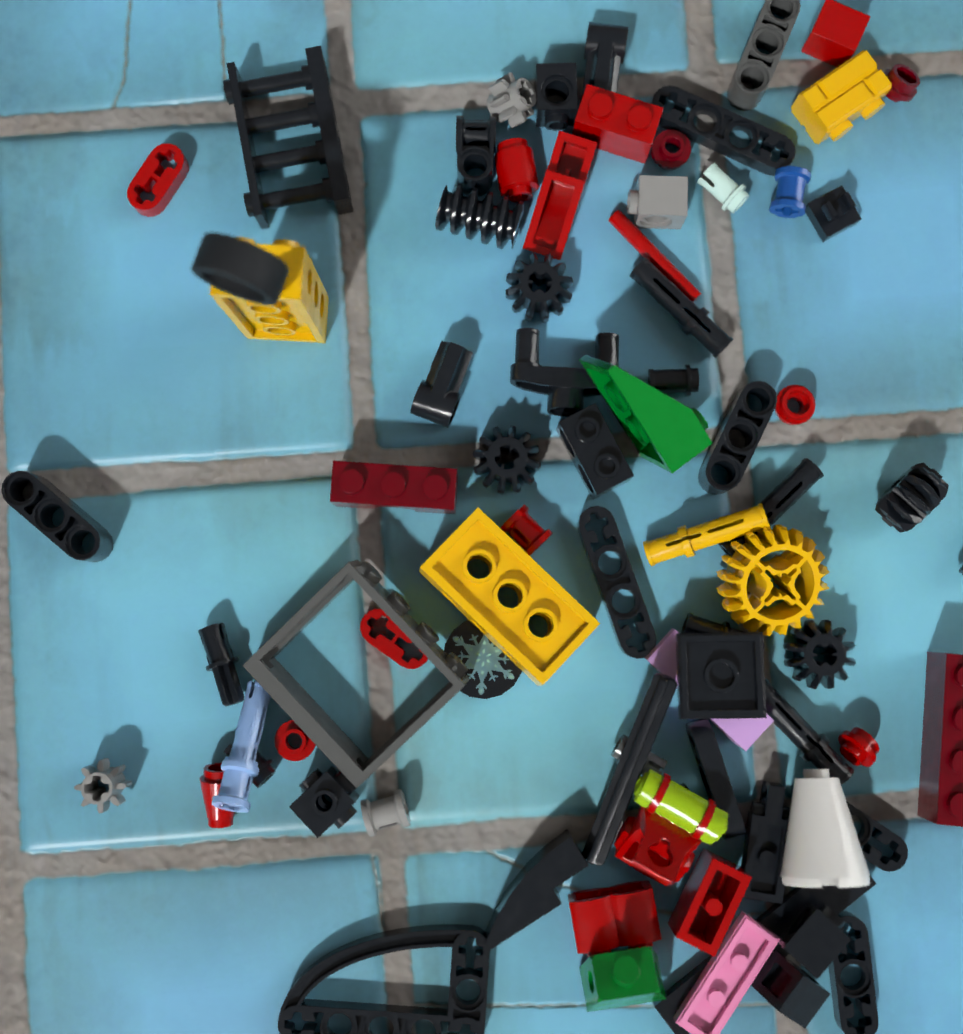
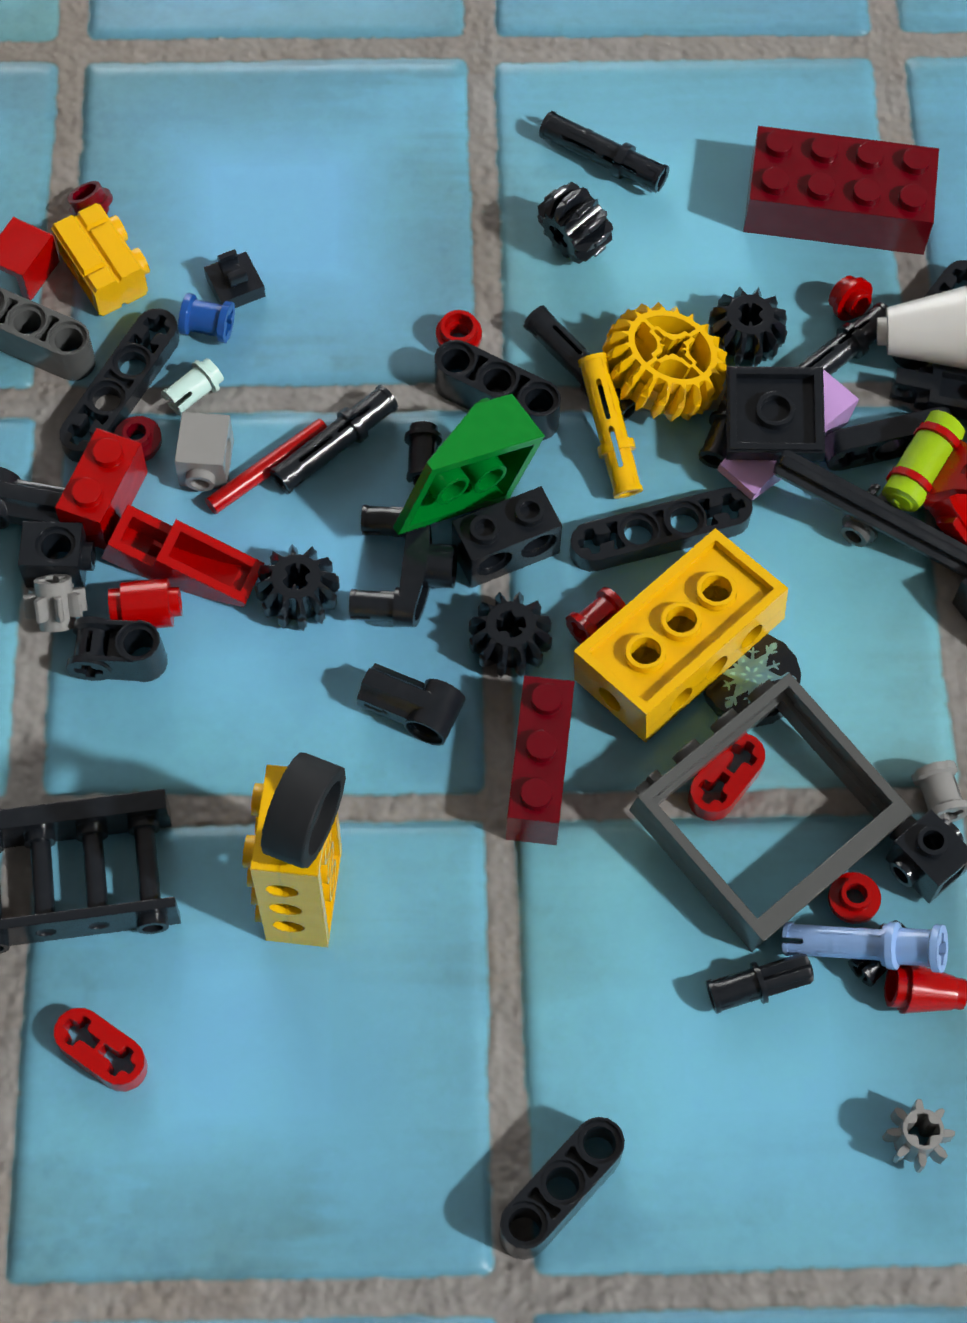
camera: 90 degrees left, 20 degrees down
(479, 215) = (197, 642): black piece -> none

